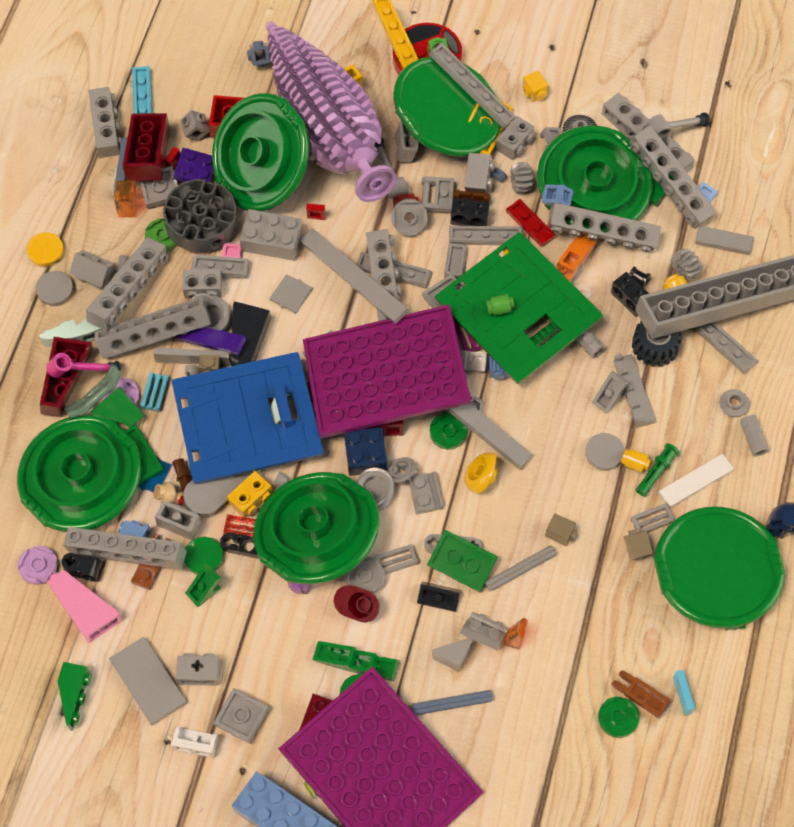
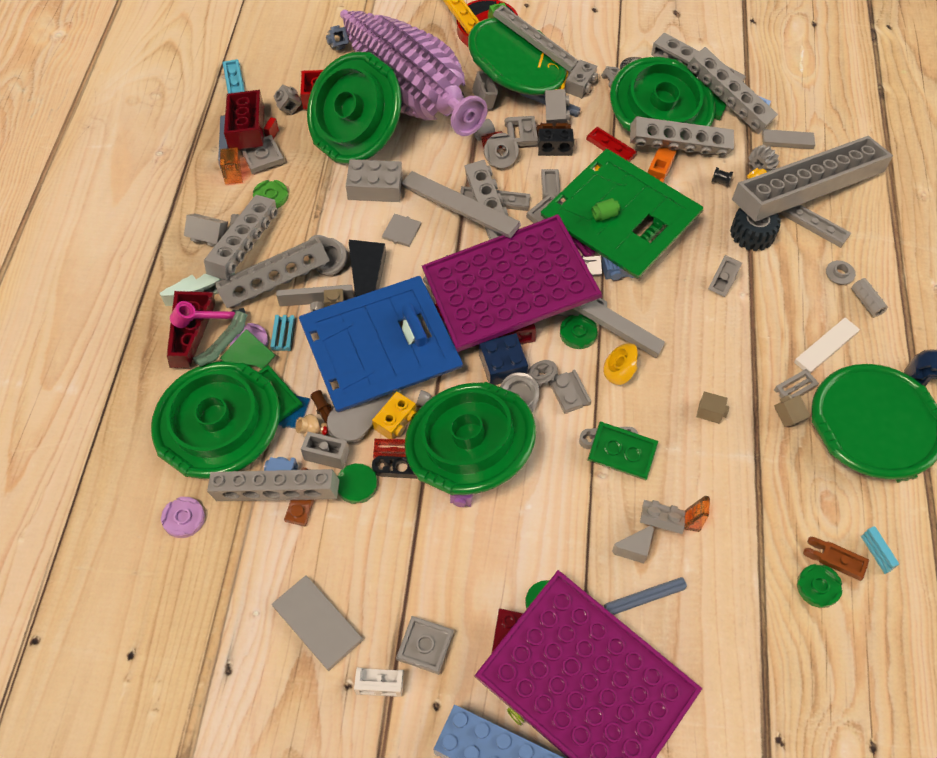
camera: 10 degrees left, 5 degrees down
(45, 249) = (157, 219): yellow tile -> none
(54, 288) = (170, 252): light grey tile -> none
(72, 685) = (234, 641): green slope -> none
(84, 607) = (237, 553): bright pink slope -> none
(85, 566) = (230, 512): black piece -> none
(104, 122) = (202, 106): light grey brick -> none
(193, 166) = (292, 134): dark purple plate -> none
(200, 215) = (304, 171): dark grey brick -> none
(202, 280) = (314, 225): light grey brick -> none
(204, 585) = (362, 512): green slope -> none
(206, 676) = (381, 604): light grey brick -> none
(214, 339) = (334, 275): dark purple tile -> none
(228, 265) = (329, 213): light grey plate -> none
(231, 250) = (338, 201): bright pink tile -> none
(316, 211) = (412, 157): red tile -> none
(353, 660) = (533, 567): green slope -> none
(356, 603) = (526, 507): dark red piece -> none
(367, 575) = (529, 481): light grey tile -> none
(394, 568) = (565, 446): light grey tile -> none
(438, 596) = (606, 490): black slope -> none
(482, 234) = (568, 160): light grey tile -> none
(520, 568) = (680, 450): light grey axle -> none
(521, 177) = (595, 107): light grey gear -> none
(535, 86) = (589, 37): yellow brick -> none
(557, 194) = (634, 109): medium blue brick -> none
(590, 344) = (694, 237): light grey axle -> none
(604, 451) = (733, 330): light grey tile -> none
(628, 291) = (718, 190): black brick -> none
(634, 390) = (747, 275): light grey hinge -> none
(636, 460) = (766, 334): yellow brick -> none
(662, 463) = (790, 333): green pin -> none
(663, 127) = (741, 48): light grey piece -> none

